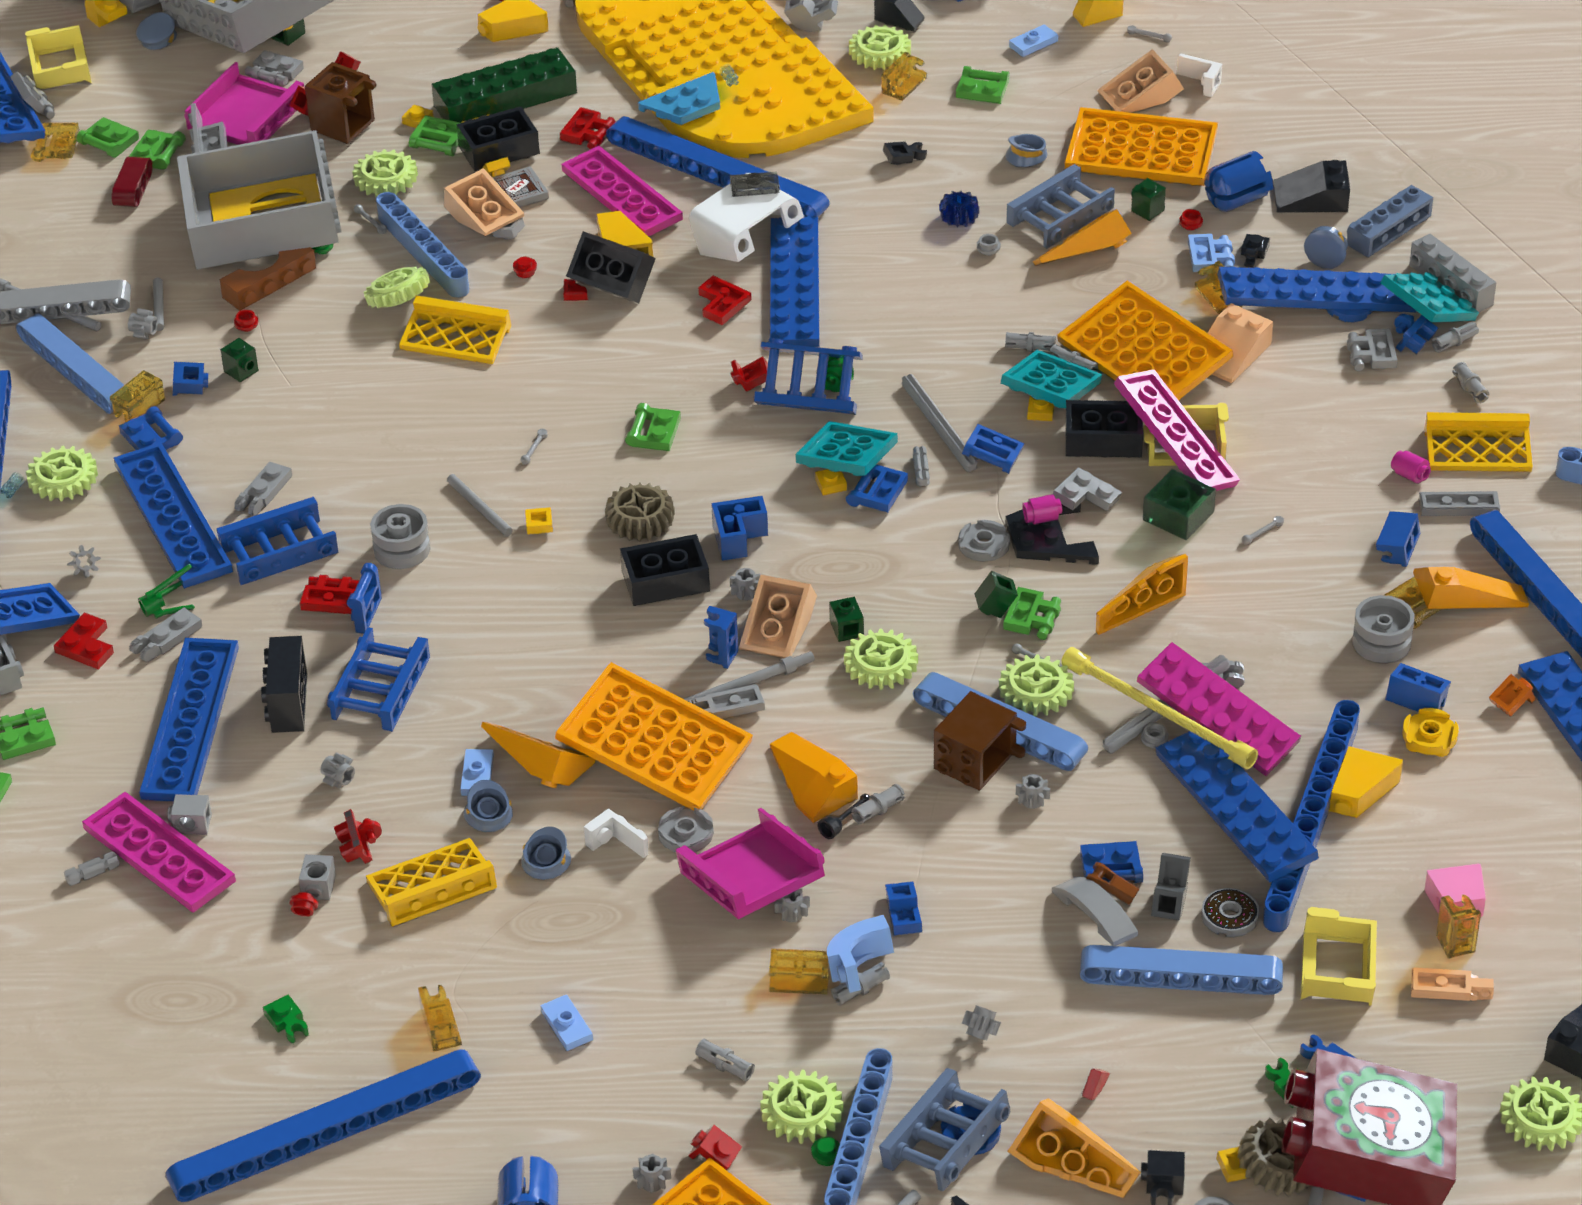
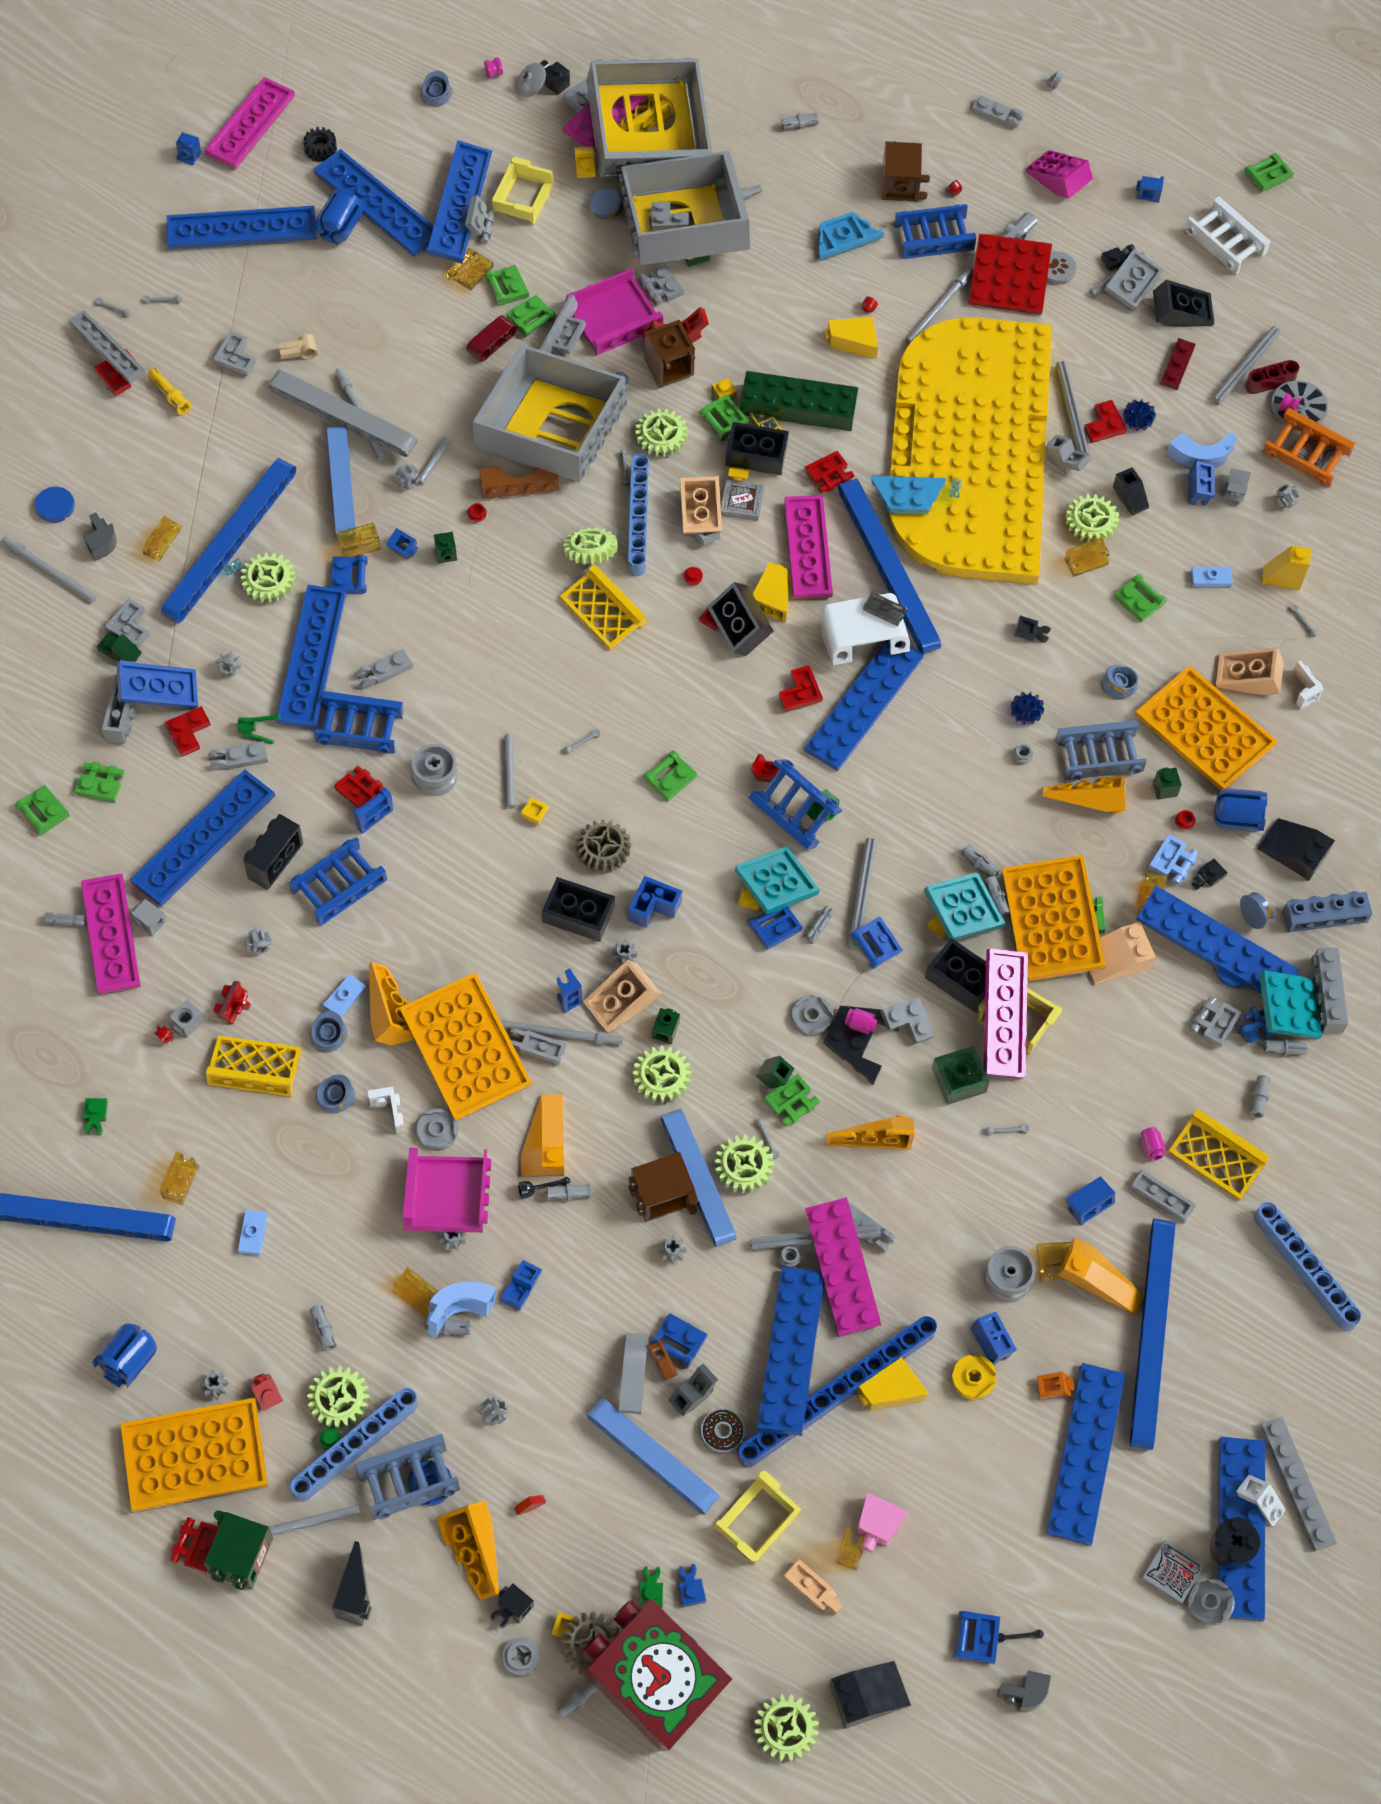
camera: 30 degrees right, 20 degrees up
(1238, 751) = (821, 1313): light yellow hose -> none

